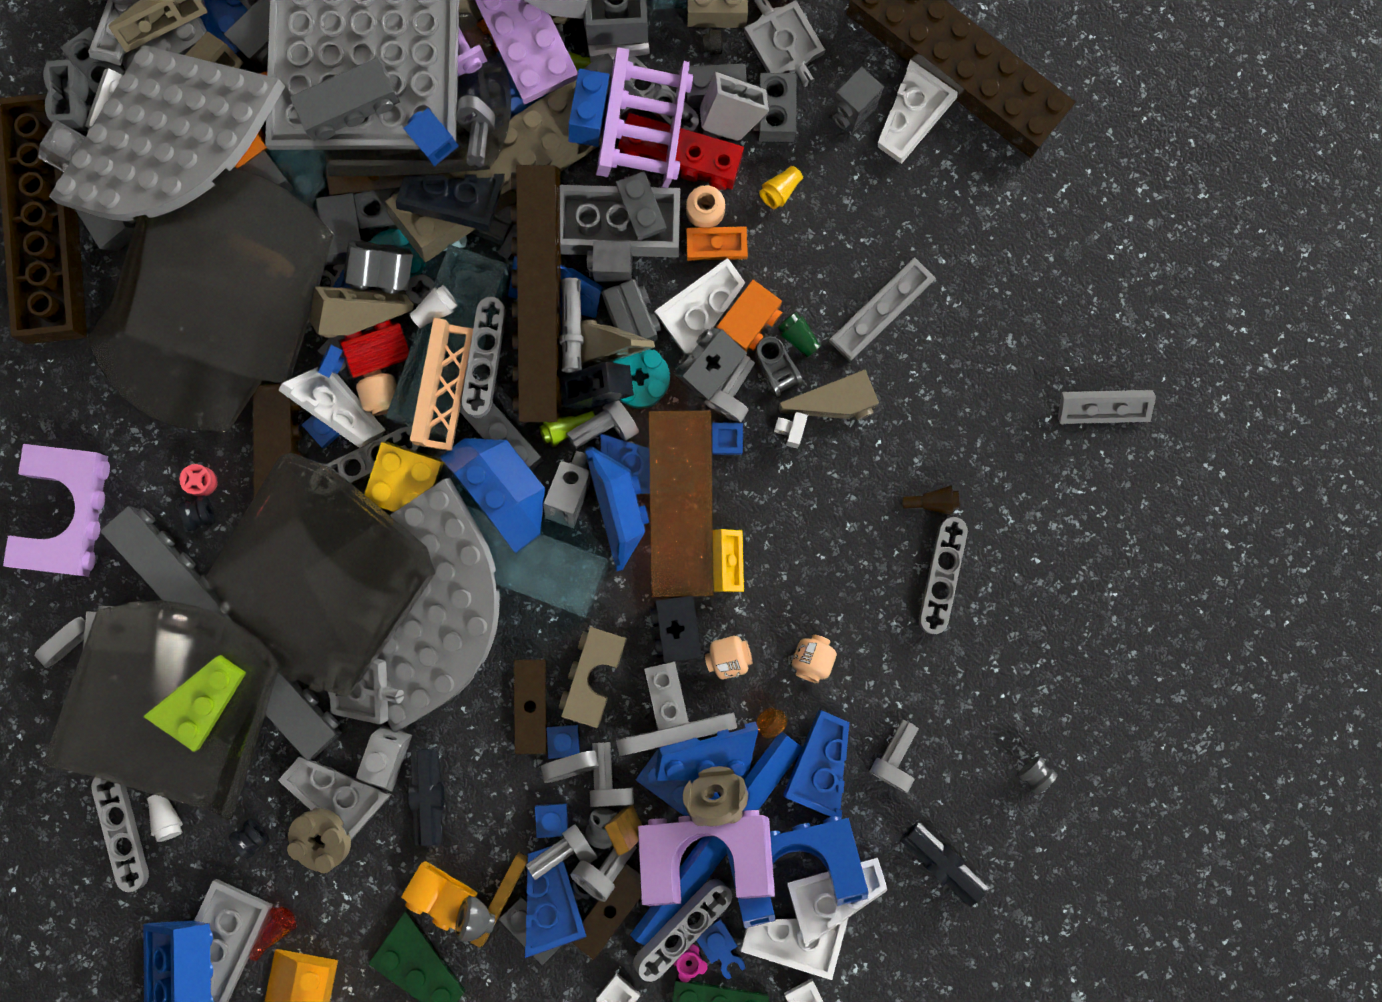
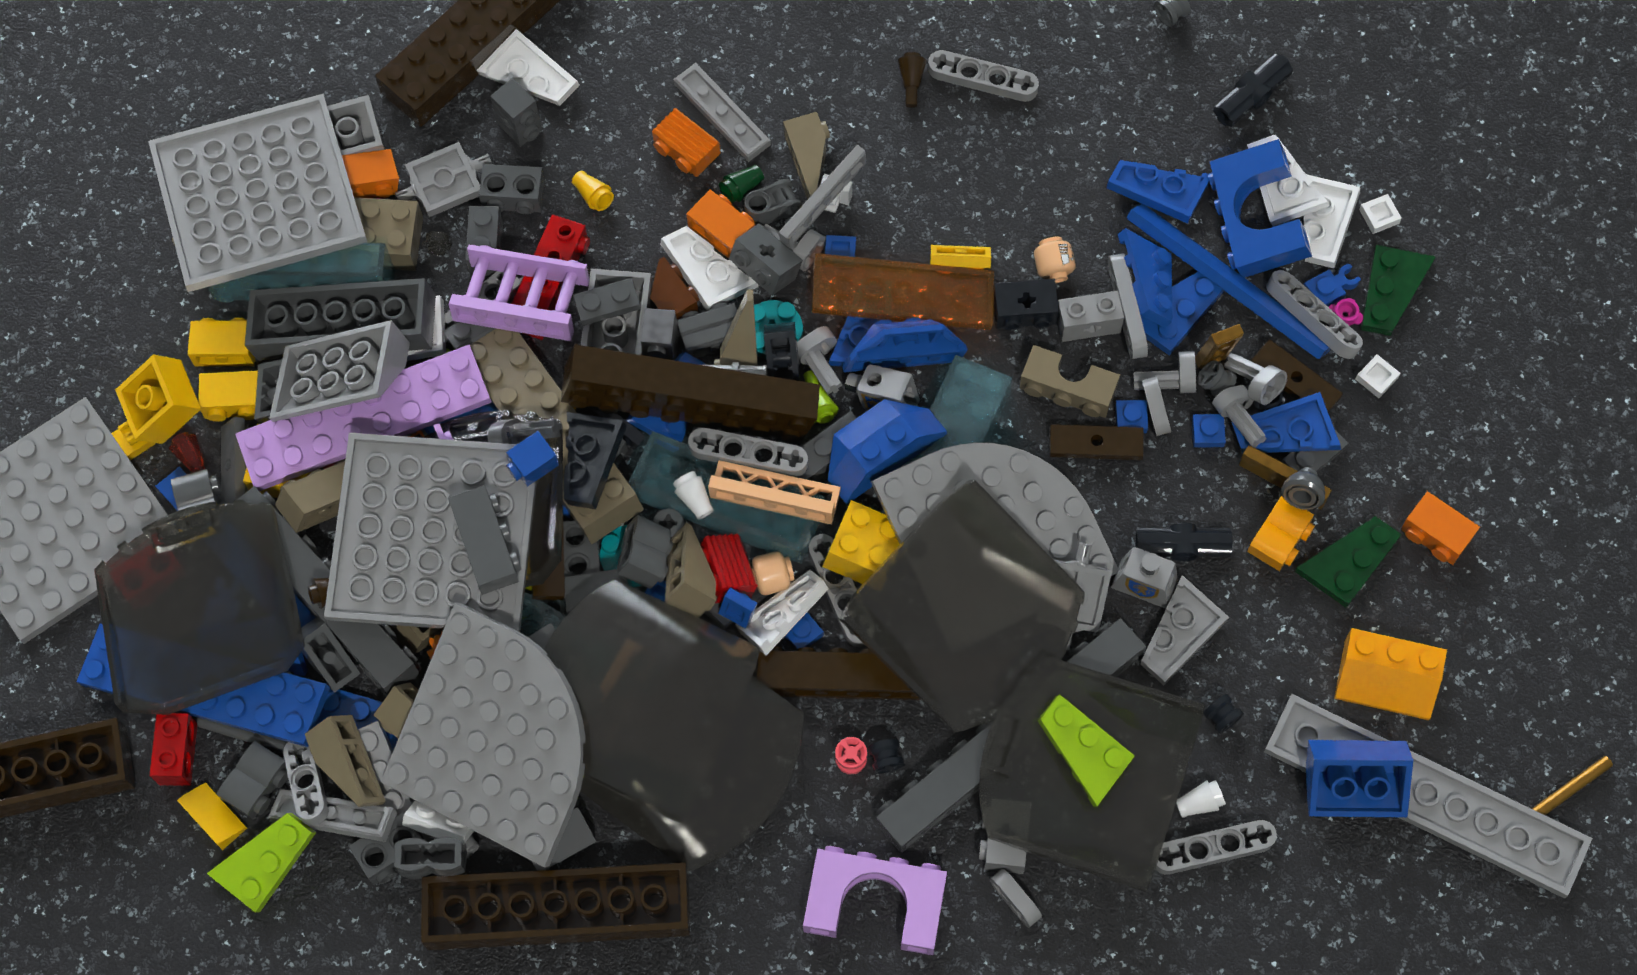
camera: 80 degrees left, 15 degrees down
(60, 145) = (488, 859): clear brick -> none
(277, 925) = (1312, 690): clear red cone -> none
(304, 846) = (1242, 639): dark tan plate -> none
(588, 107) = (505, 336): blue brick -> none
(664, 844) = (1227, 240): lavender arch -> none
(666, 272) = (671, 292): none -> reddish brown slope
(705, 207) = (608, 252): light nougat head -> none
(716, 243) = (644, 247): orange plate -> none
(719, 811) = (1203, 263): dark tan plate -> none
(731, 107) = (513, 219): light grey torso -> none
(771, 722) = (1112, 228): clear orange plate -> none
(775, 414) = (823, 196): none -> light grey tile
(814, 659) = (1058, 186): light nougat head -> none
(840, 274) = (685, 143): none -> orange brick
(887, 766) = (1163, 131): light grey piece -> none

